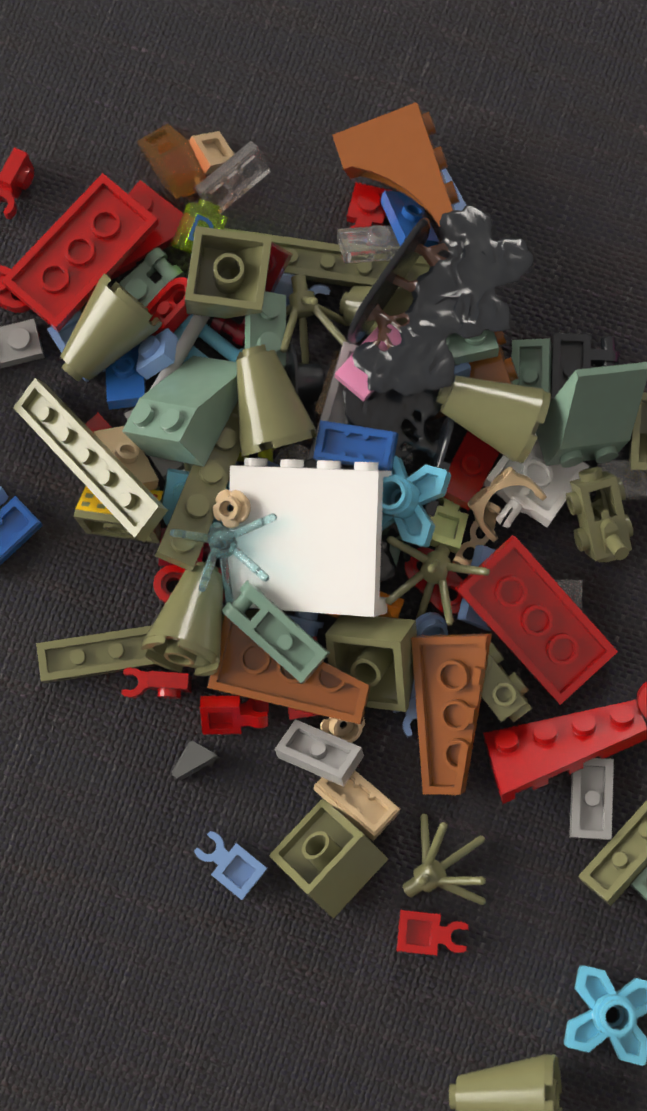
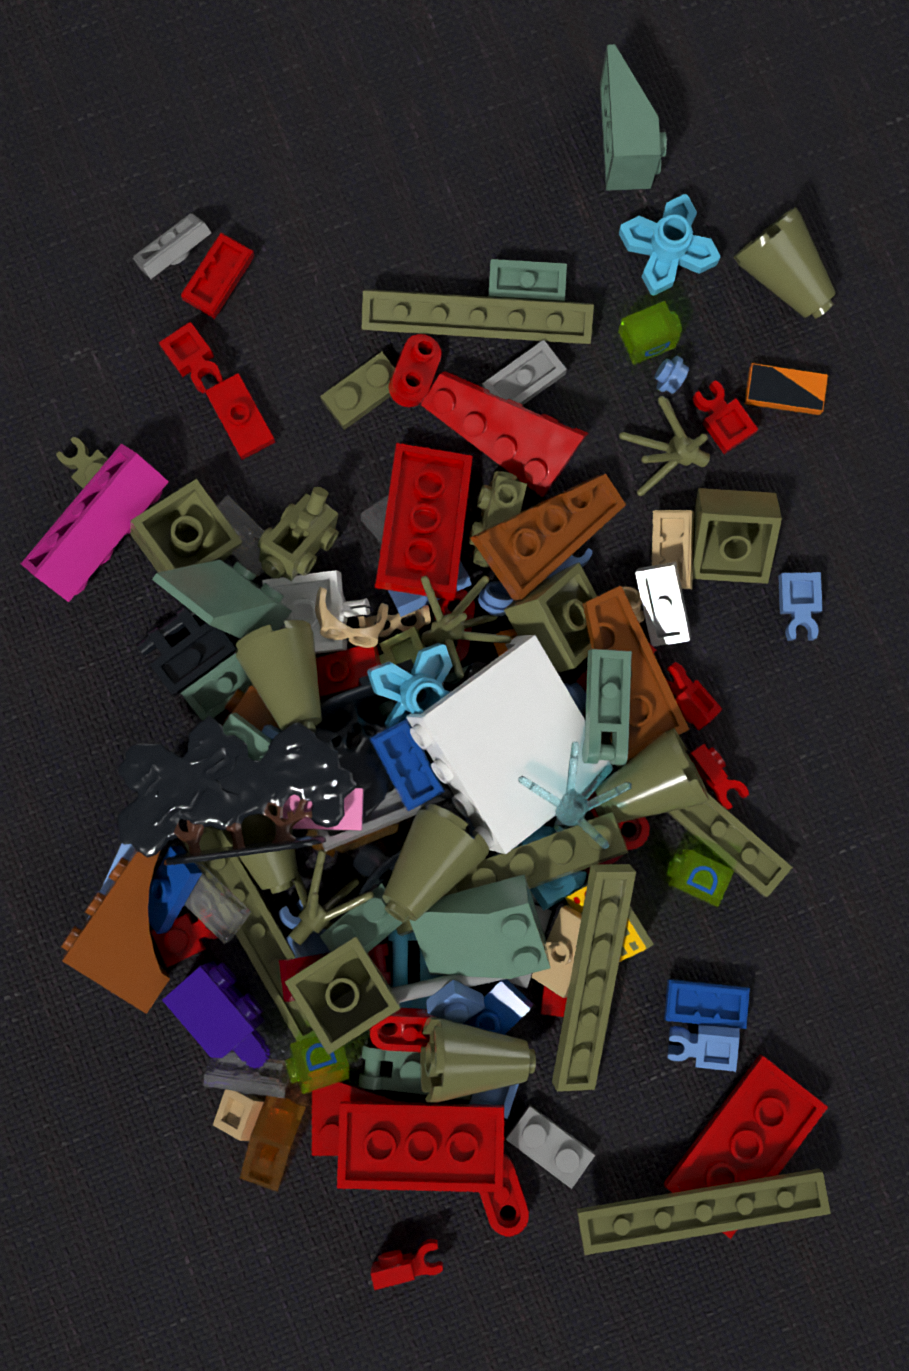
camera: 135 degrees left, 5 degrees up
(94, 606) = (699, 877): none -> clear neon green brick
(192, 760) = (748, 696): dark grey slope -> none
(240, 505) = (530, 819): tan plate -> none
(288, 187) = (220, 1014): none -> dark purple hinge
(412, 1008) = (786, 389): none -> tile
(499, 920) = (671, 374): none -> medium blue plate
(548, 933) = (650, 332): none -> clear neon green brick

